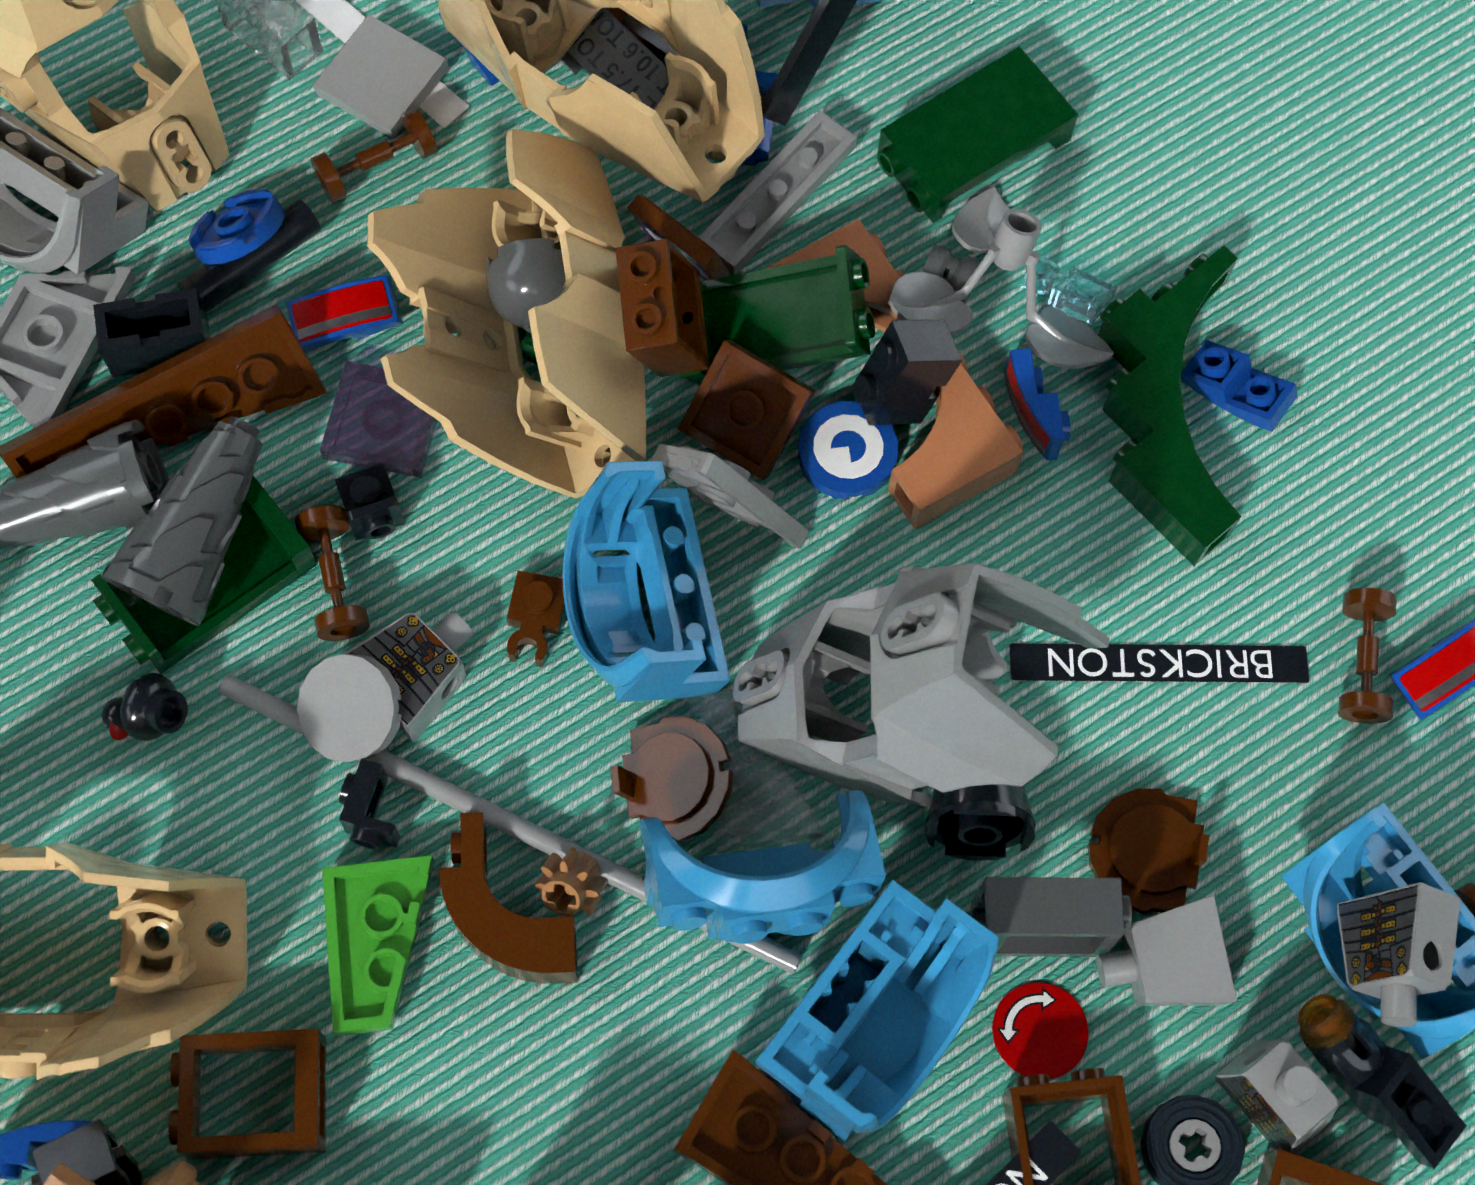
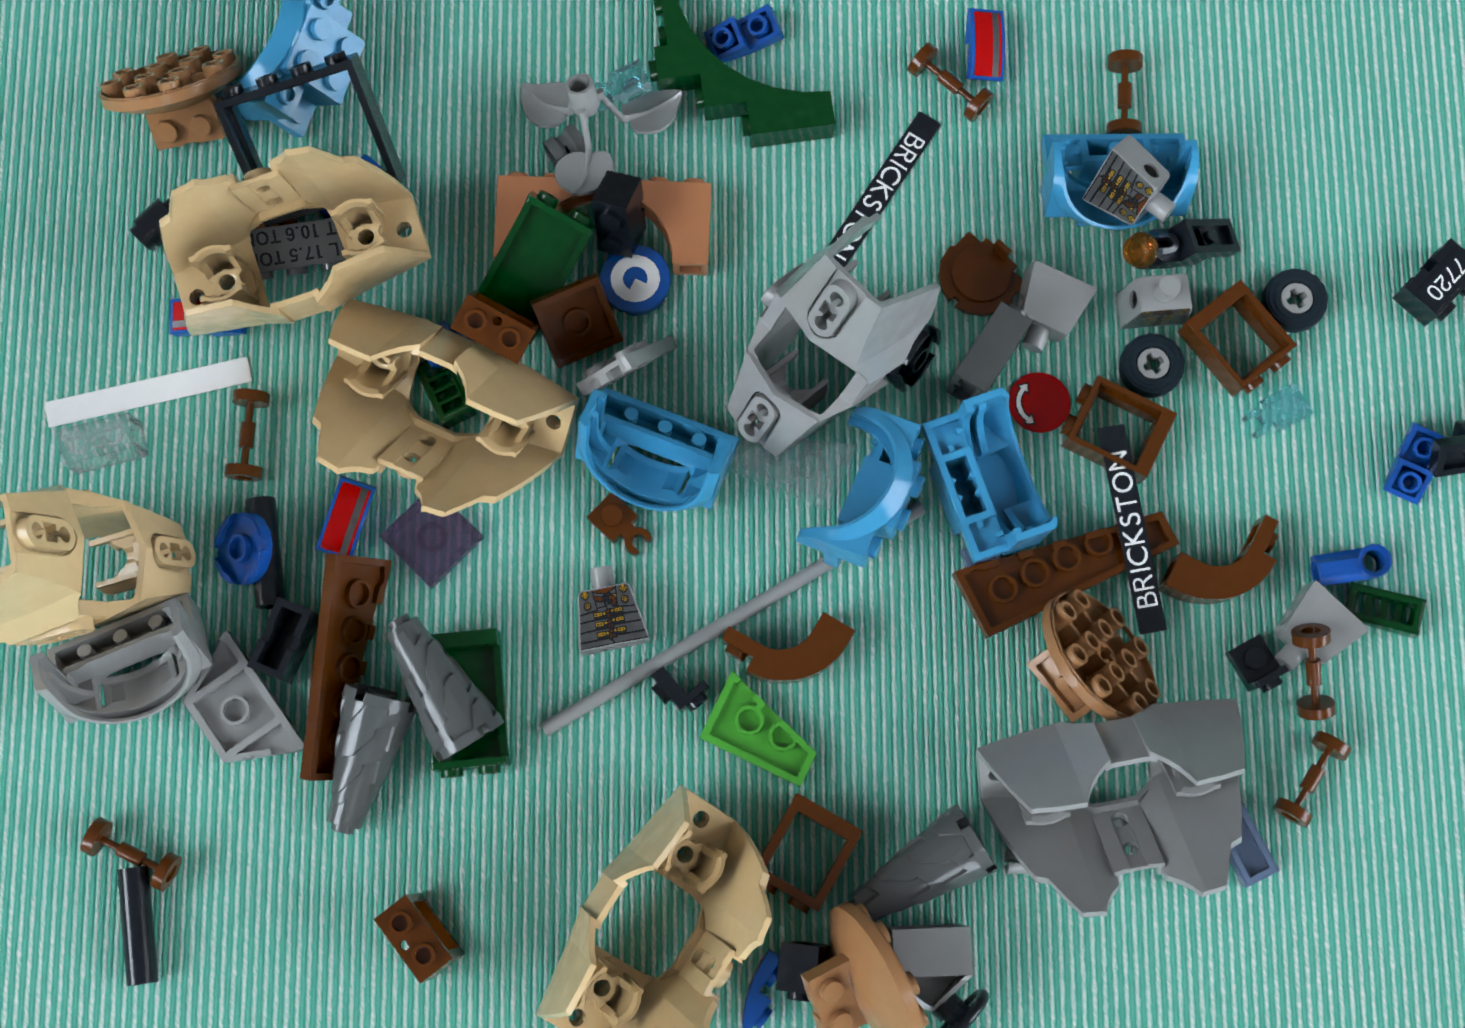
camera: 55 degrees left, 10 degrees up
(146, 710) = (534, 785): black animal -> none
(322, 525) = (481, 614): reddish brown wheel -> none
(349, 707) = (615, 664): light grey tile -> none
(370, 502) = (483, 577): black bracket -> none
(380, 76) = (189, 397): light grey tile -> none
(524, 277) = (417, 392): dark grey cylinder -> none
(571, 883) = (799, 602): medium nougat gear -> none
(662, 226) = (442, 288): reddish brown tile -> none
(675, 776) = (773, 505): piece -> none
(778, 191) = (440, 211): light grey plate -> none
(974, 131) = (483, 69): dark green panel -> none
(1036, 411) = (692, 158): blue slope -> none

